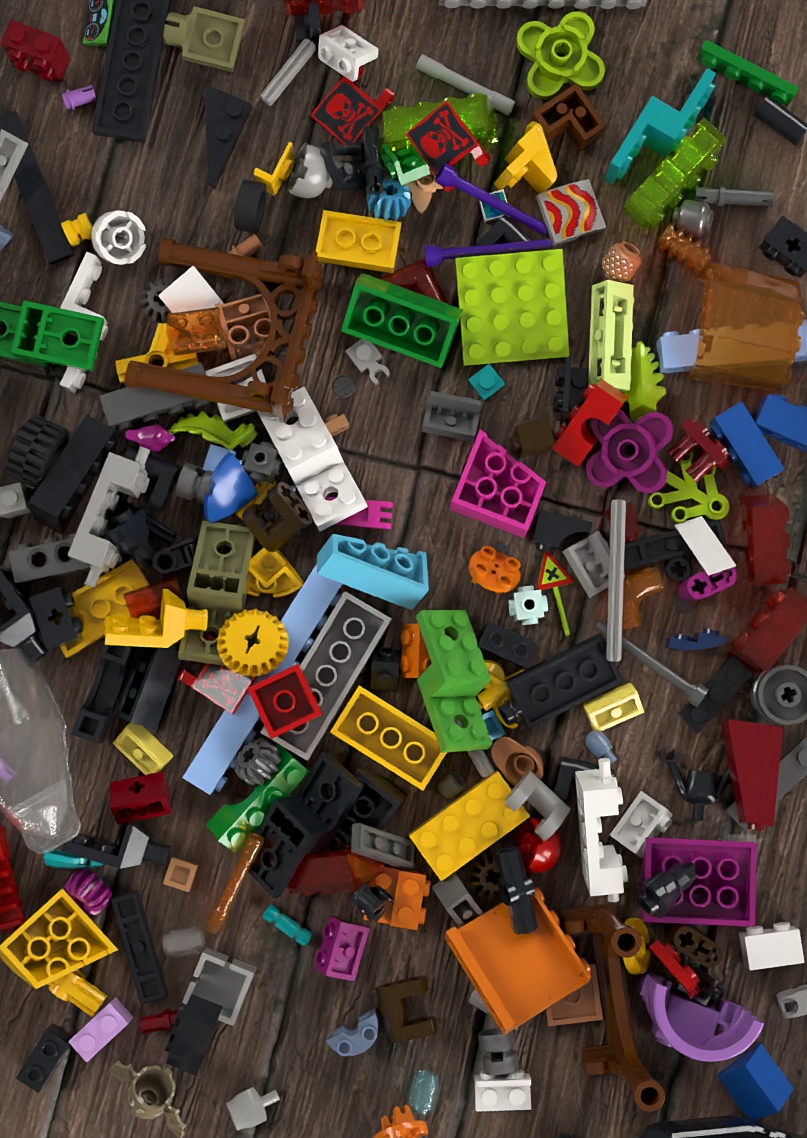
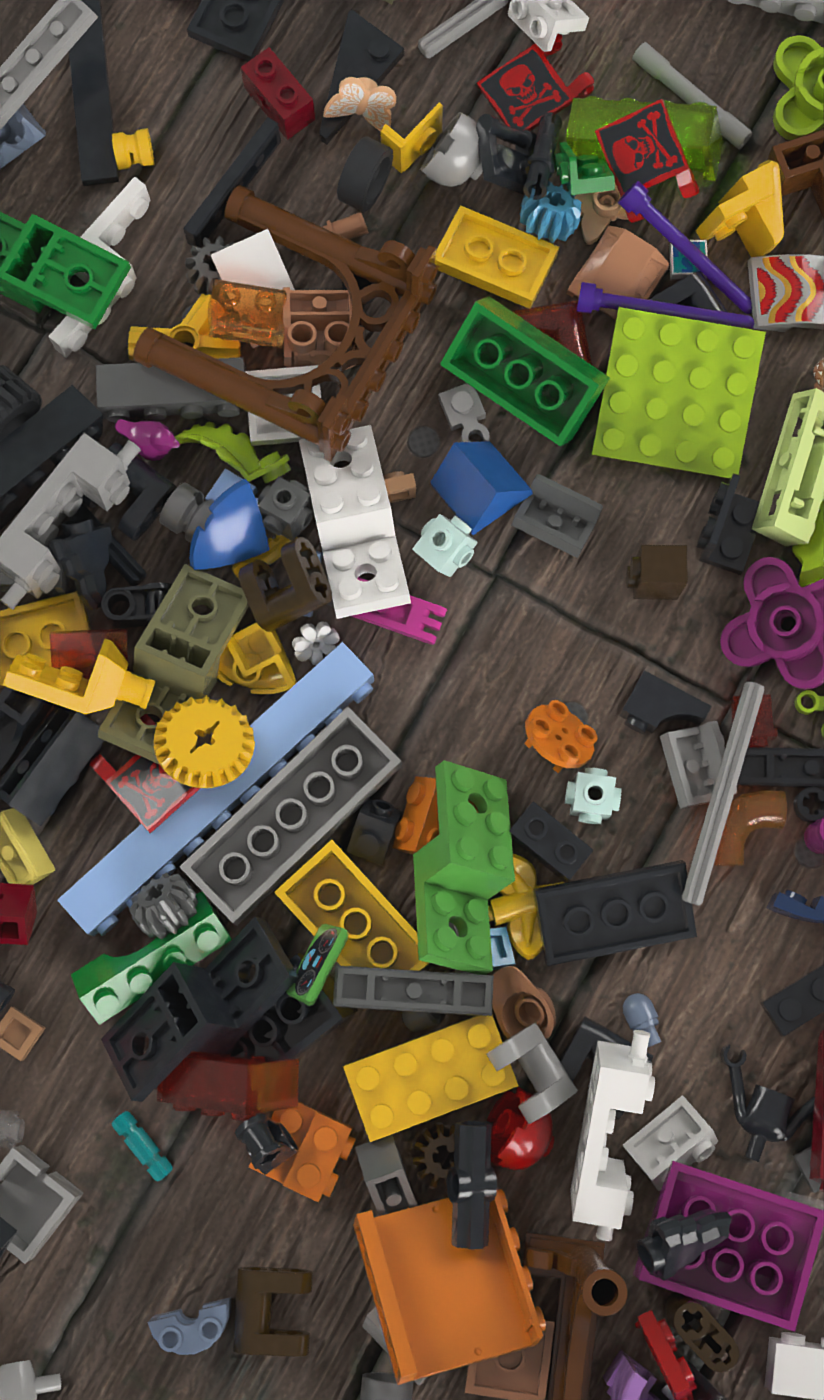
camera: 20 degrees right, 5 degrees down
(118, 237) = (181, 169): white cylinder -> none
(159, 231) = (239, 173): none -> black tile
(171, 161) = (278, 93): none -> dark red brick
(222, 908) = (112, 1033): clear orange piece -> none
(233, 150) = (363, 98): none -> light nougat animal
(285, 701) = (223, 830): red brick -> none
(307, 550) = (315, 642): none -> white plant
(341, 948) = (207, 1200): magenta bracket -> none
(373, 772) = (318, 963): none -> slope
(375, 569) = (397, 689): medium azure wedge -> none
(380, 457) = (446, 544): none -> light aqua brick
(382, 846) = (302, 1070): dark grey tile -> none
(391, 408) = (478, 483): none -> blue slope
(442, 773) = (413, 990): none -> dark grey plate
(449, 226) = (622, 267): none -> nougat slope
(486, 382) = (616, 485): teal plate -> none
(497, 488) = (593, 627): dark pink wedge -> none
(510, 712) = (529, 934): black plate -> none
(552, 576) = (637, 767): piece -> none
(601, 403) = (716, 591): red arch -> none
(613, 707) = (674, 969): light yellow slope -> none
(640, 962) = (617, 1331): yellow tile -> none
(693, 692) = (792, 977): dark grey piece -> none

